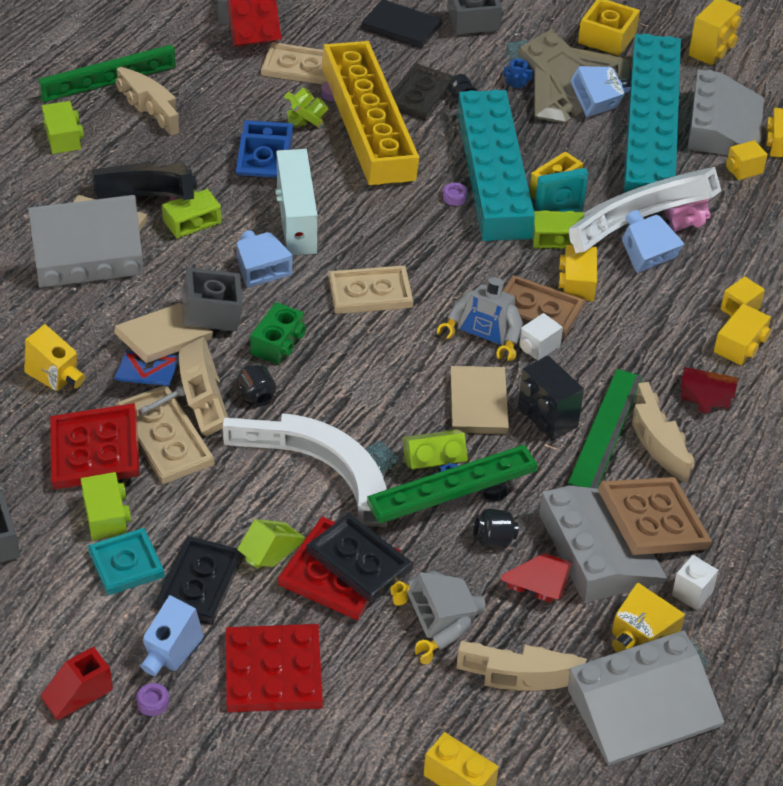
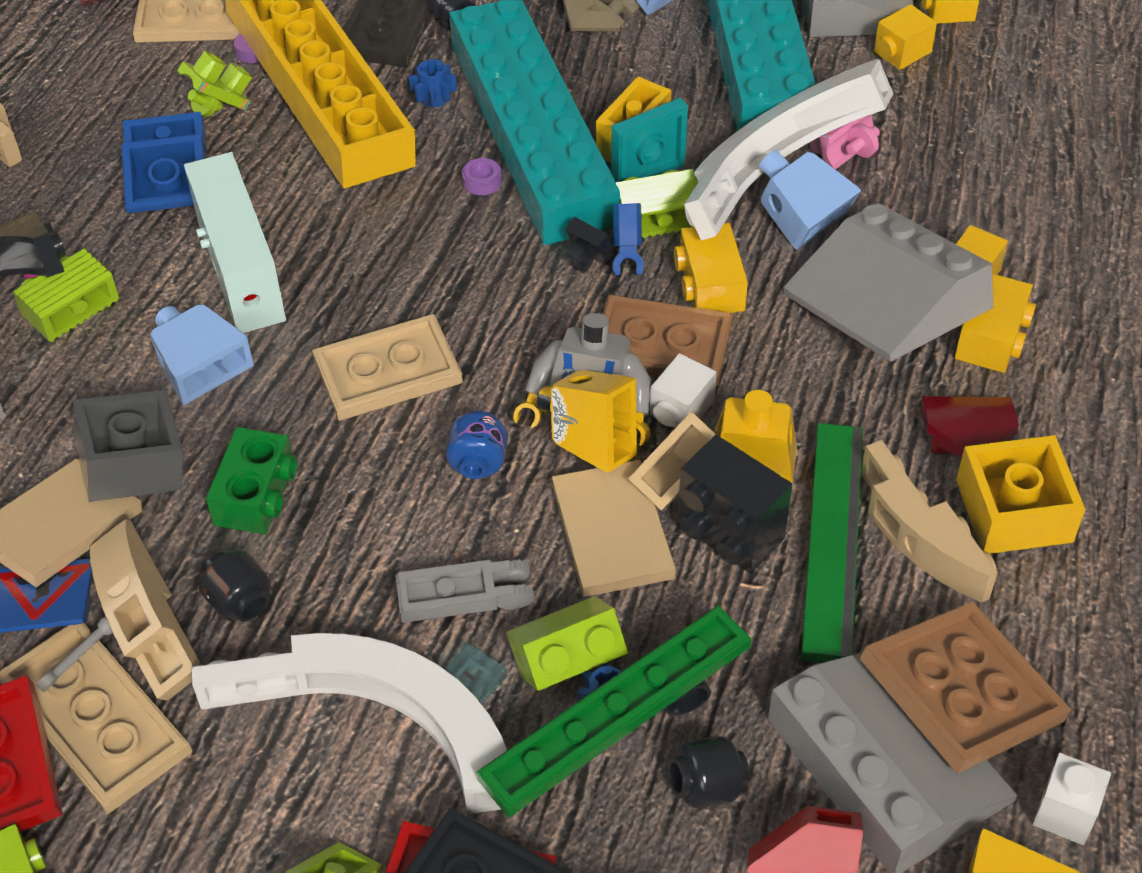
camera: 10 degrees left, 5 degrees up
(384, 413) = (462, 589): none -> light grey hinge
(411, 339) = (476, 443): none -> blue head
(439, 133) = (432, 83): none -> blue gear
(483, 336) = (593, 416): none -> yellow torso
(507, 245) = (587, 244): none -> black tile
(511, 374) = (660, 472): none -> tan slope
(533, 242) = (627, 234): none -> blue bar
(580, 363) = (761, 430): none -> yellow torso
(684, 298) = (892, 282): none -> light grey slope
(721, 427) = (1019, 494): none -> yellow brick

